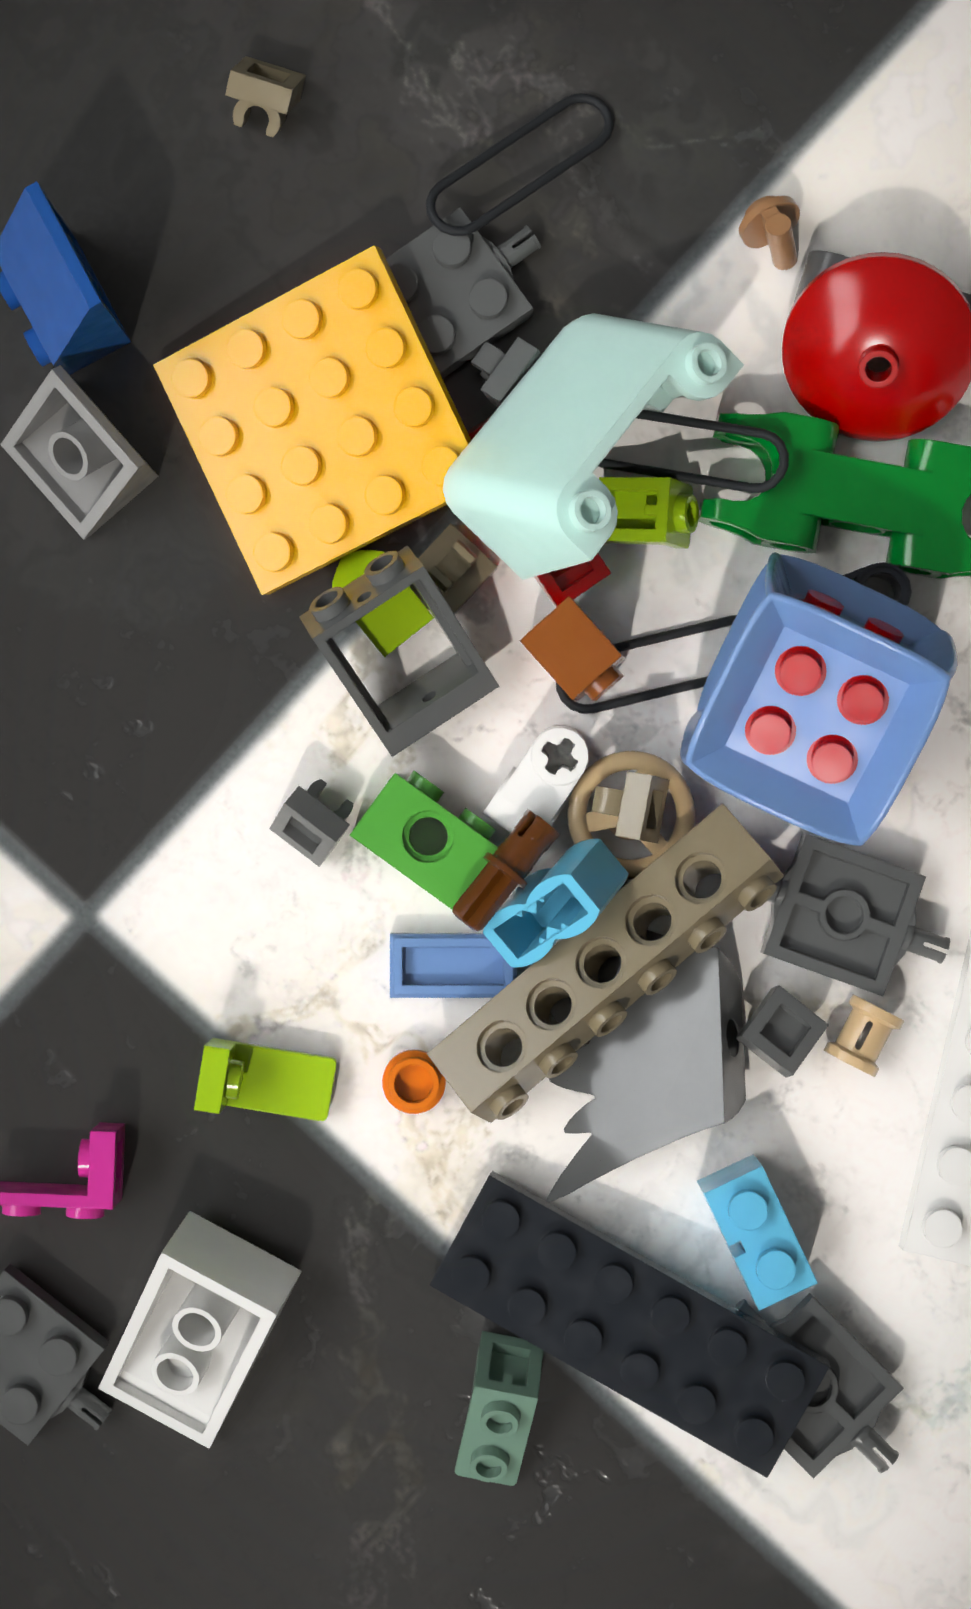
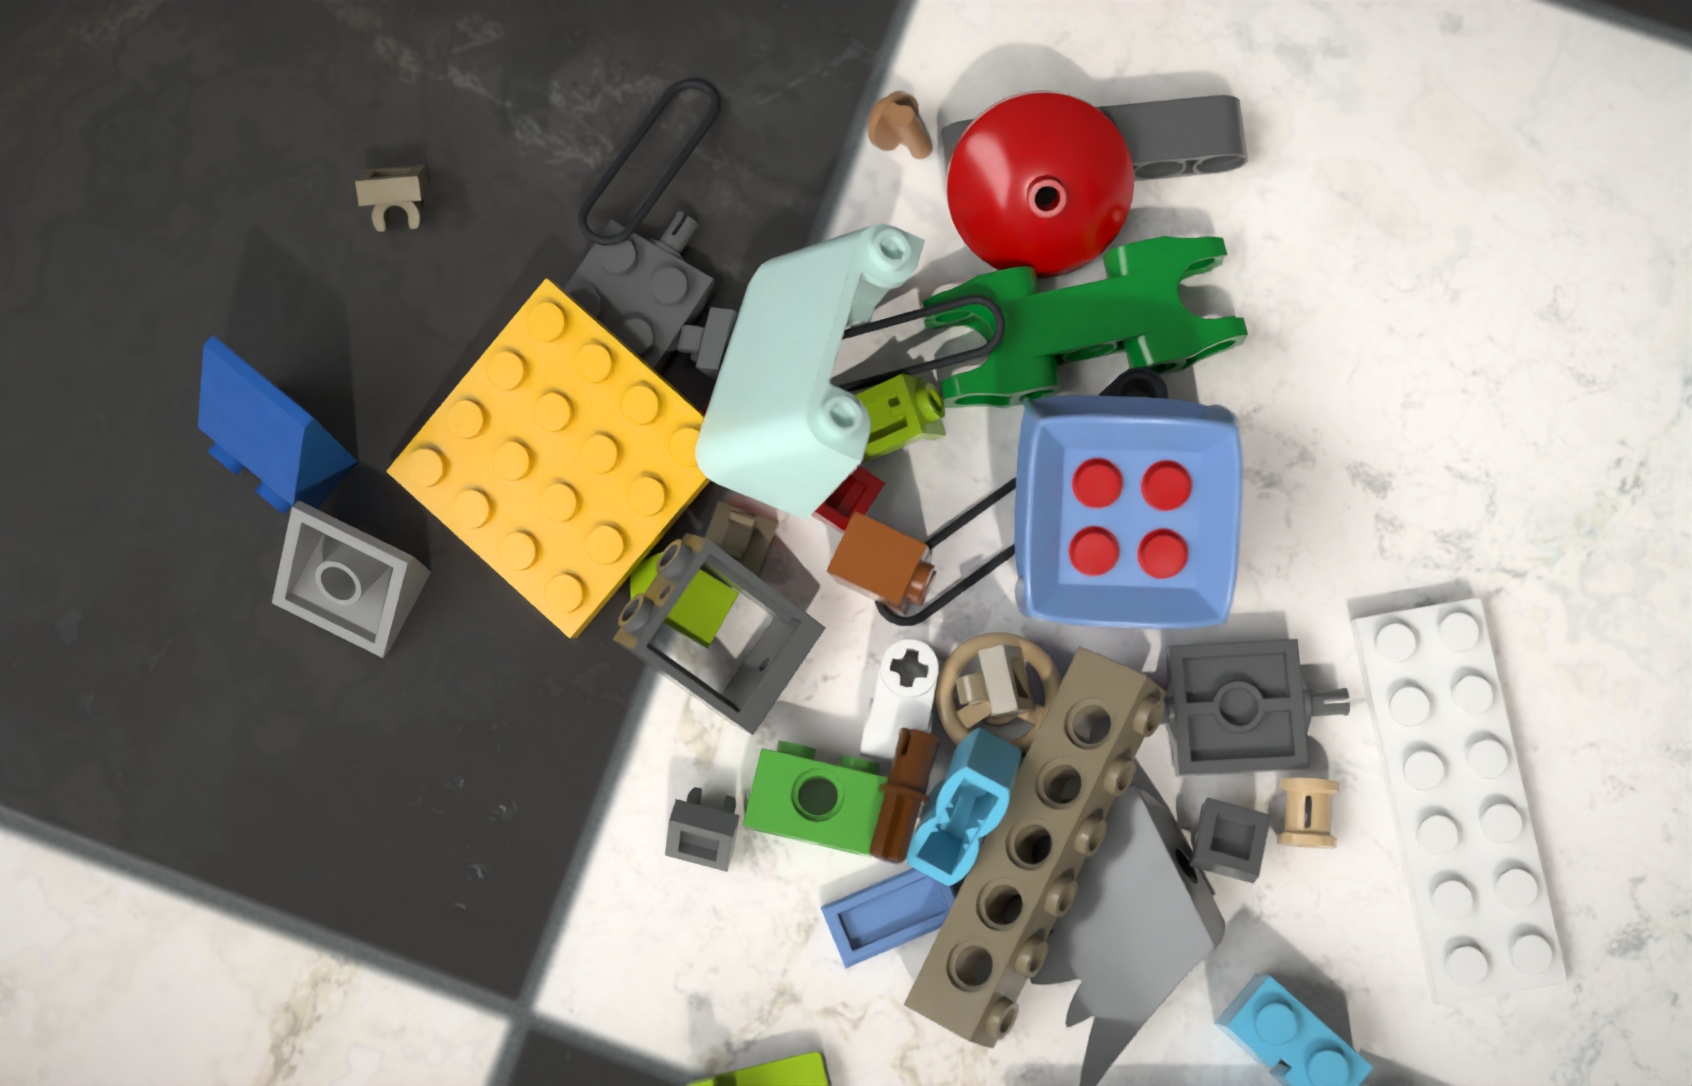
camera: 25 degrees left, 10 degrees down
(413, 1082) = (902, 1041): orange plate -> none

